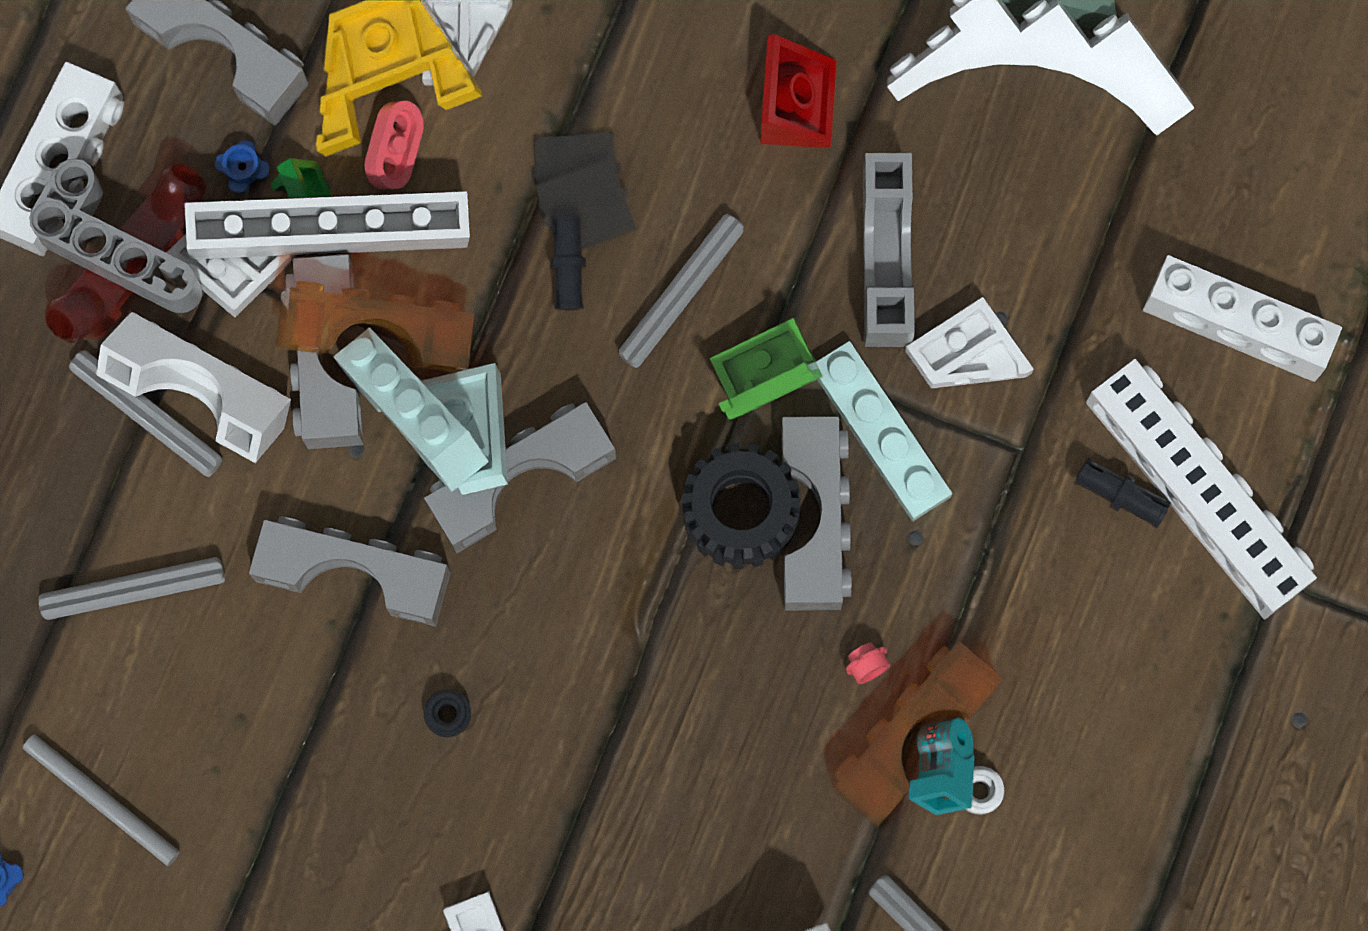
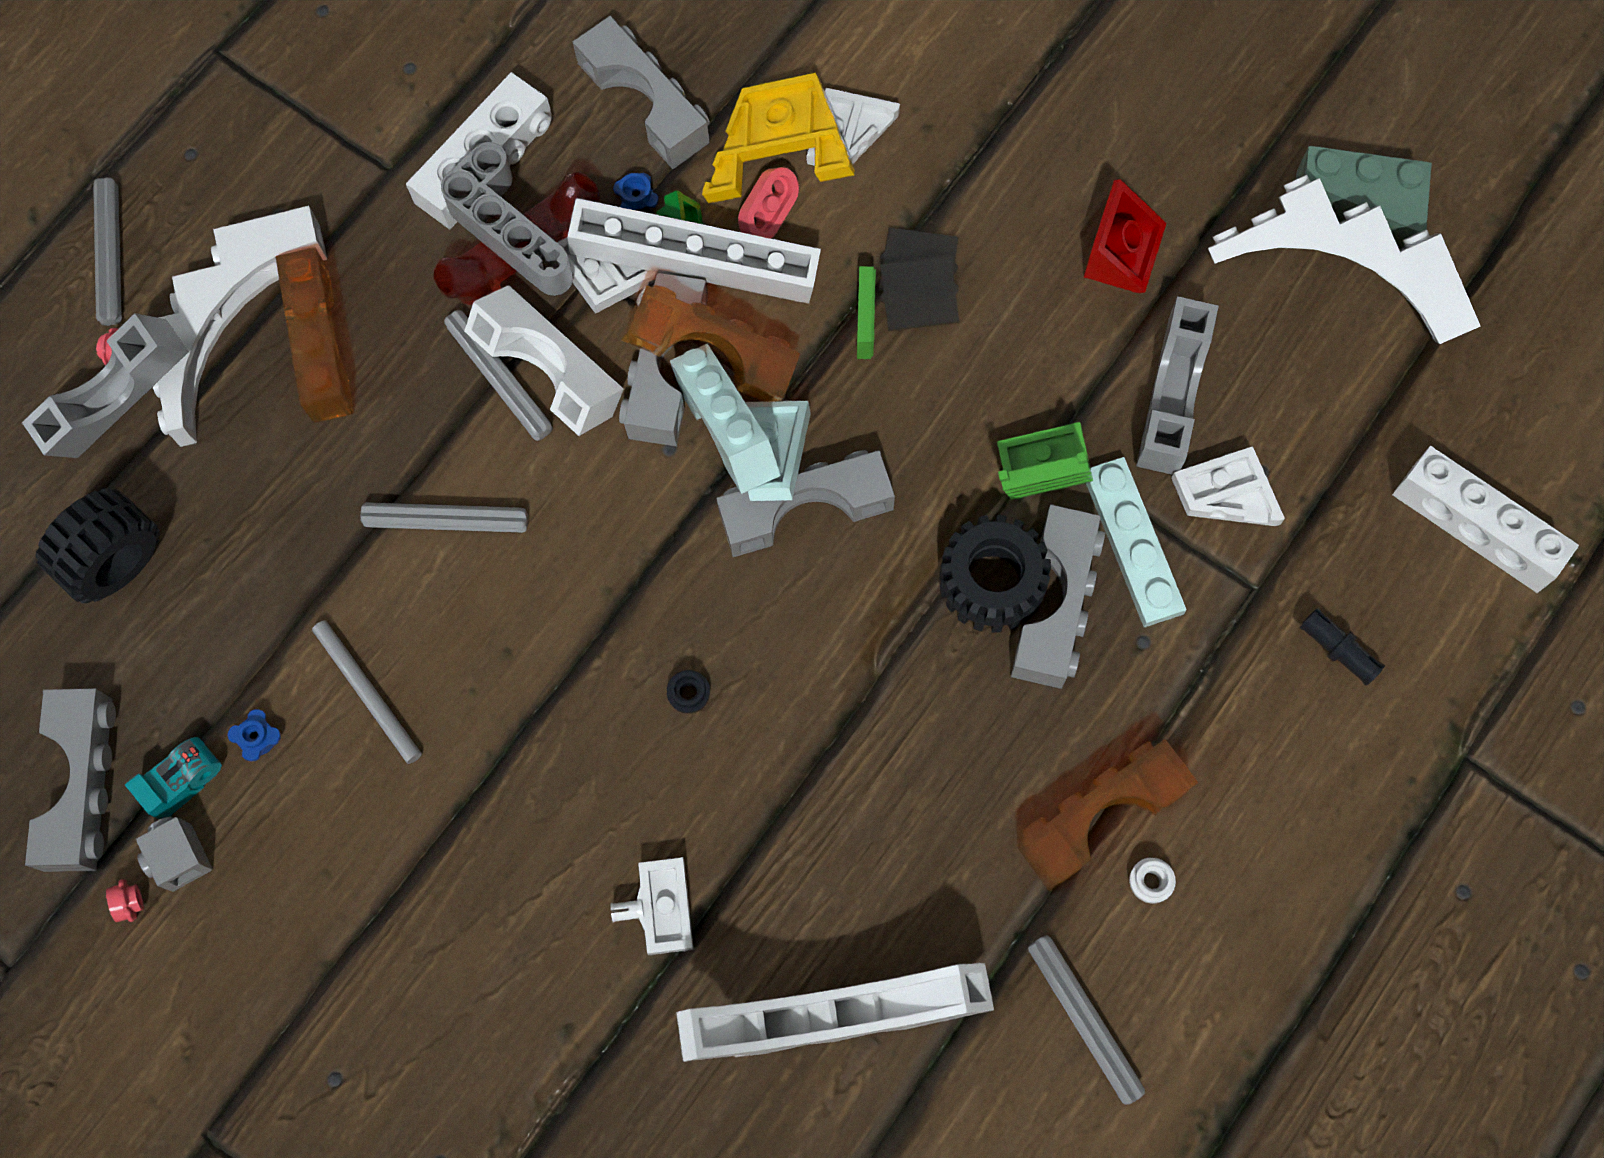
camera: 15 degrees right, 5 degrees down
(294, 556) = (591, 523): light grey arch -> none
(533, 245) = (866, 312): none -> bright green tile
(567, 263) = (892, 333): black pin -> none
(681, 290) = (985, 381): light grey axle -> none
(867, 663) = (1075, 740): coral plate -> none
(944, 767) = (1125, 850): teal leg -> none
(1201, 488) = (1417, 661): white brick -> none

